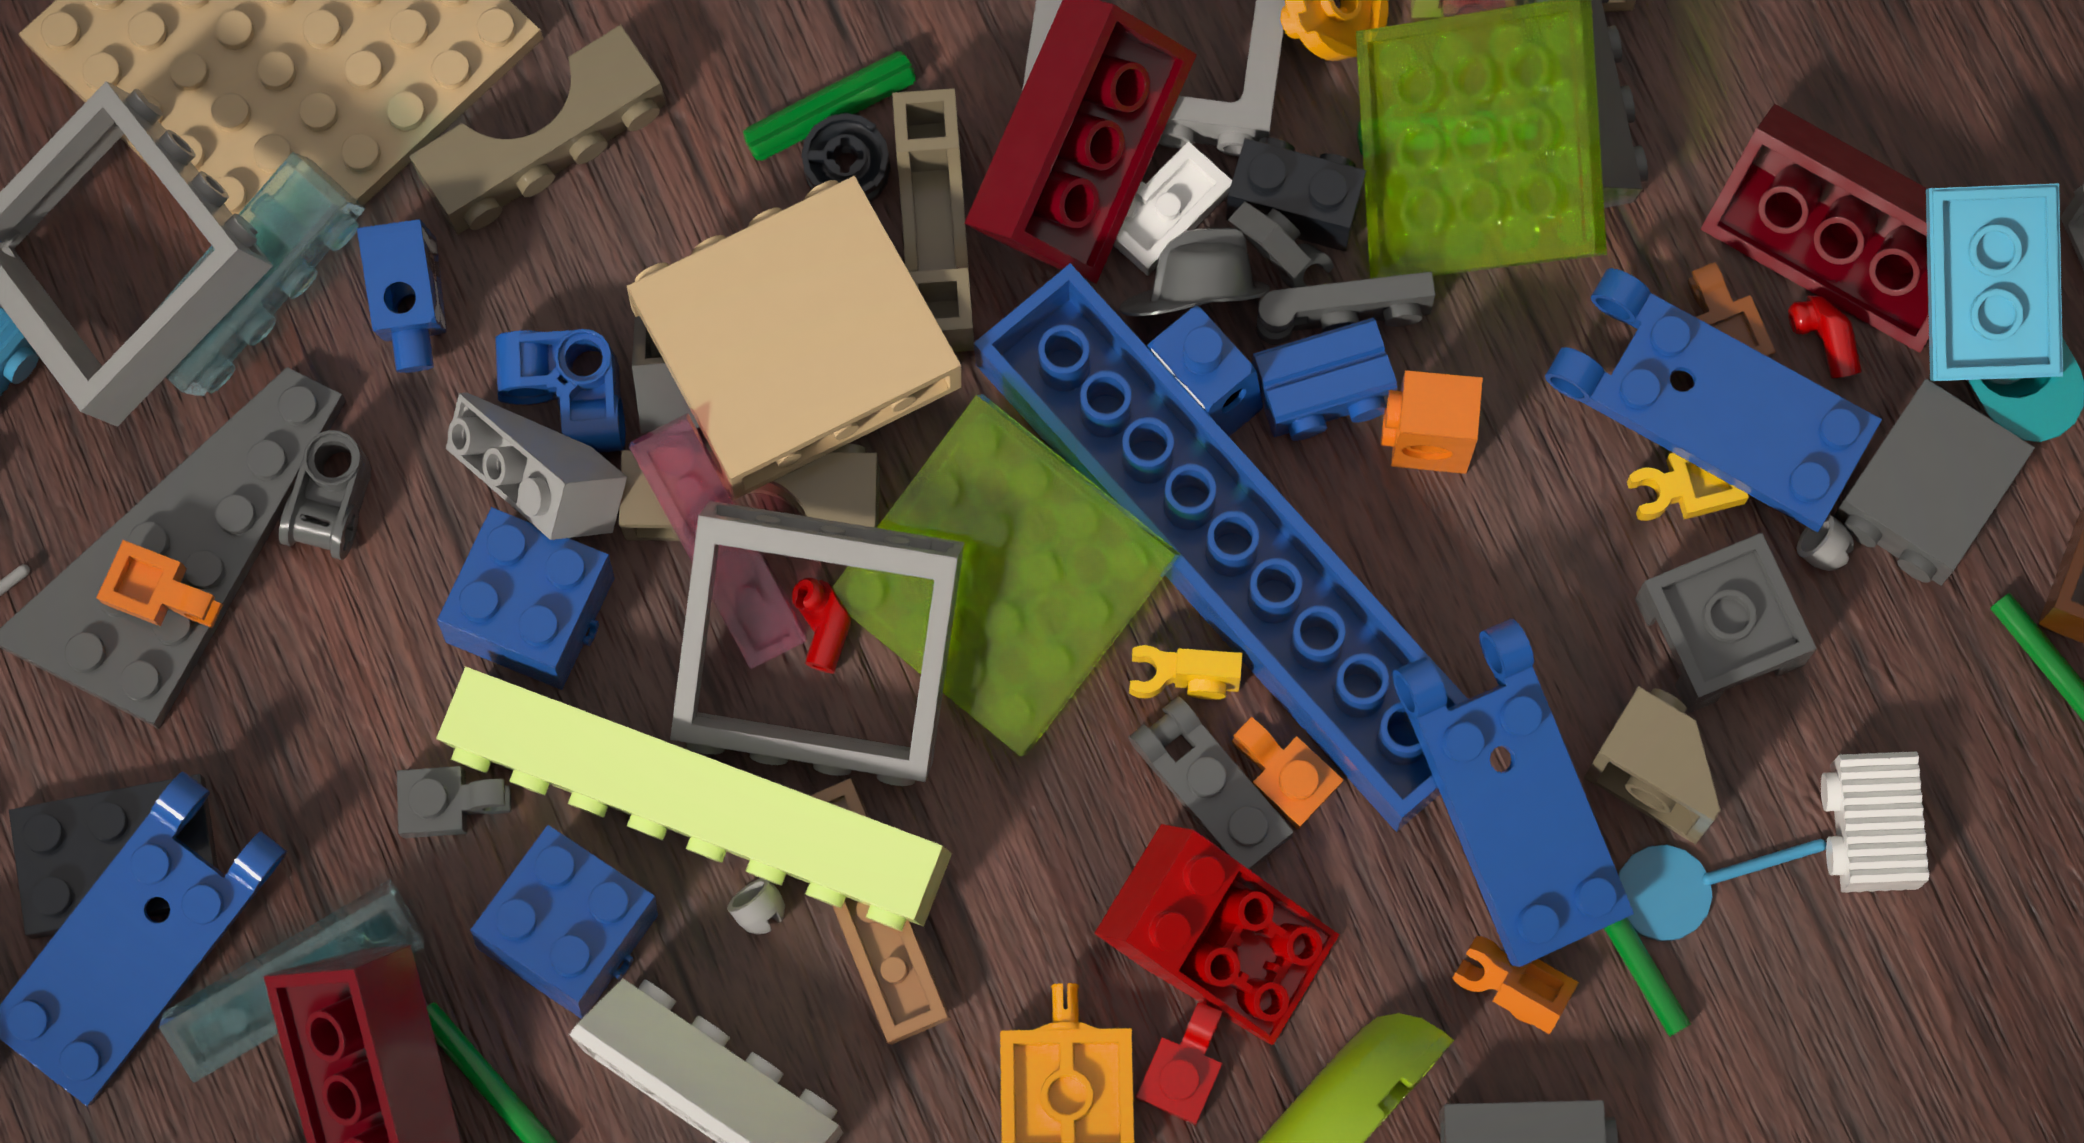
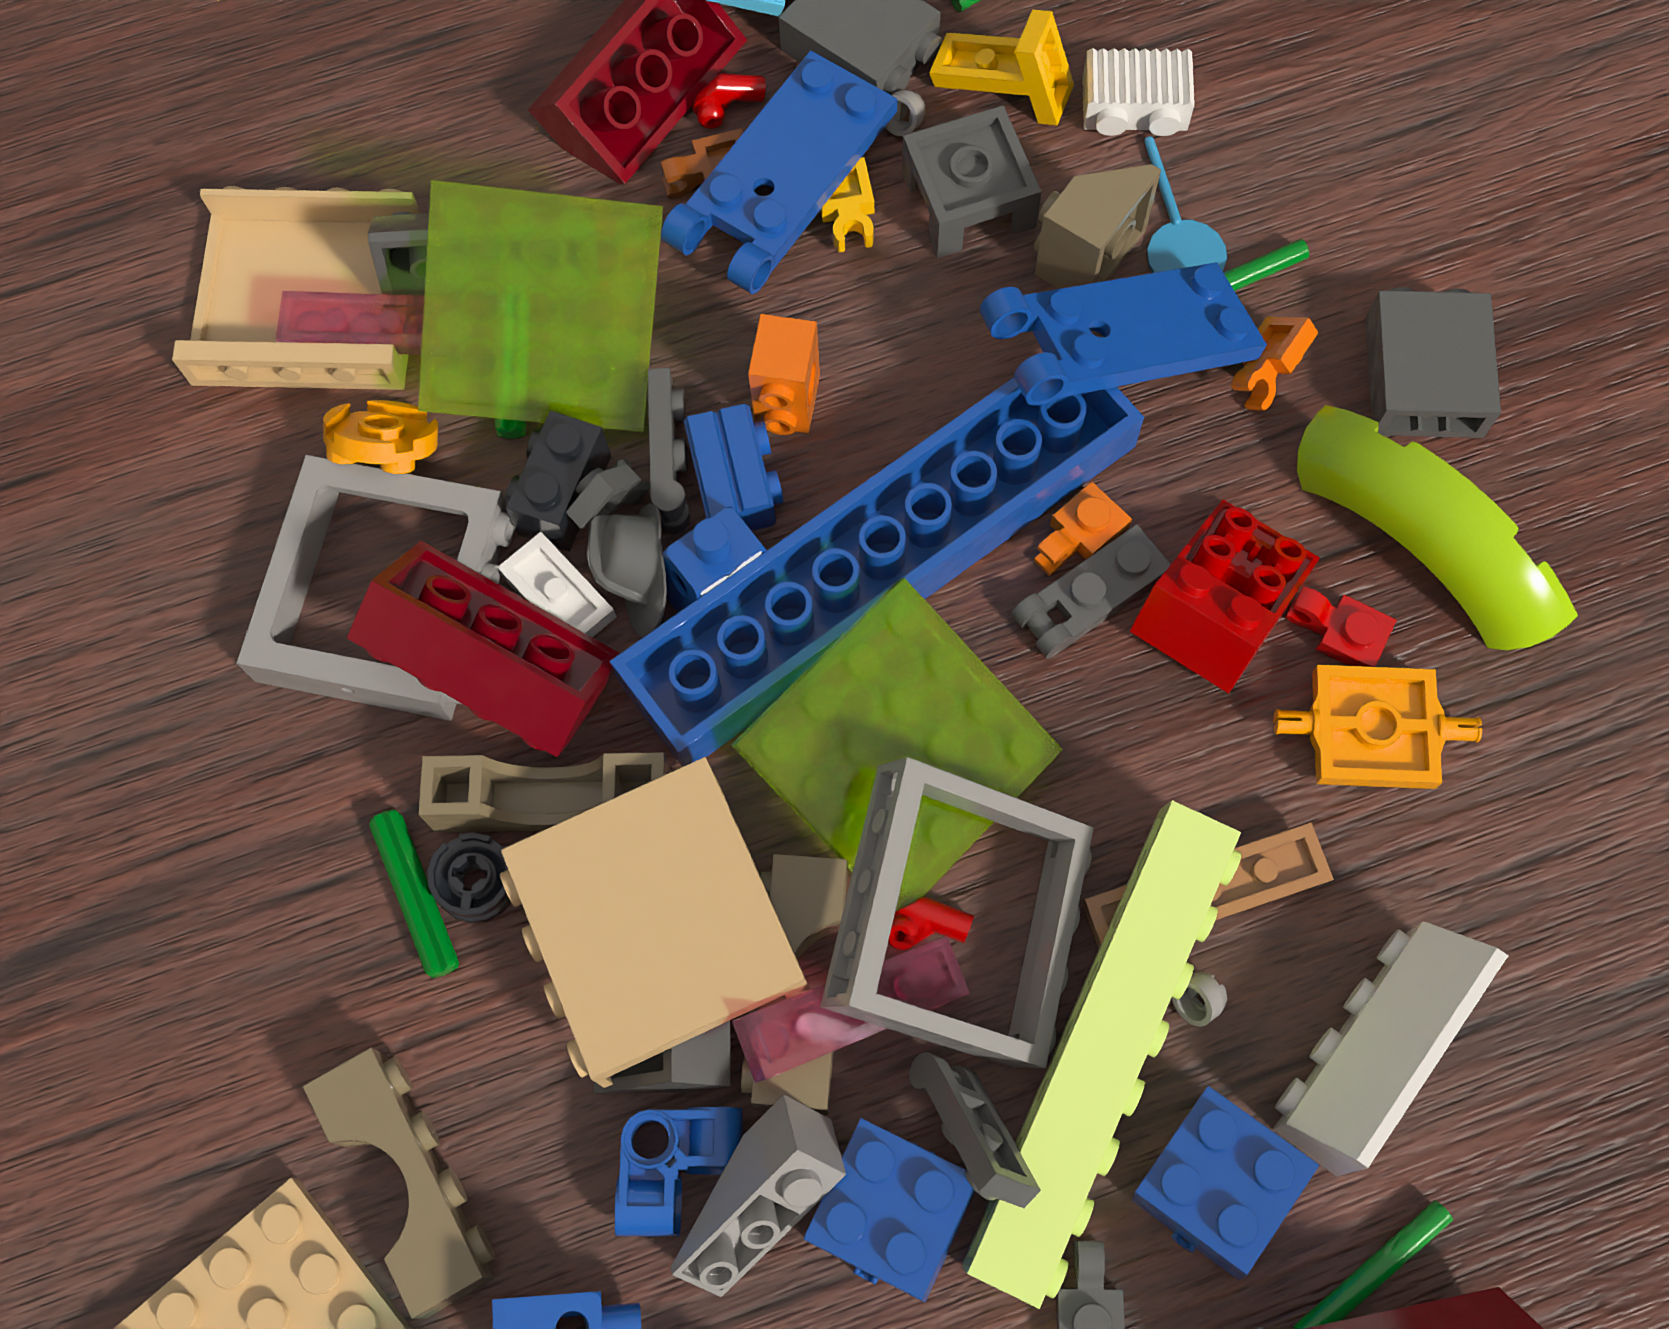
camera: 85 degrees left, 5 degrees down
(602, 665) = (975, 1130): none -> dark grey plate
(1201, 671) = (995, 587): yellow plate -> none
(1890, 661) = (1009, 65): none -> yellow bracket

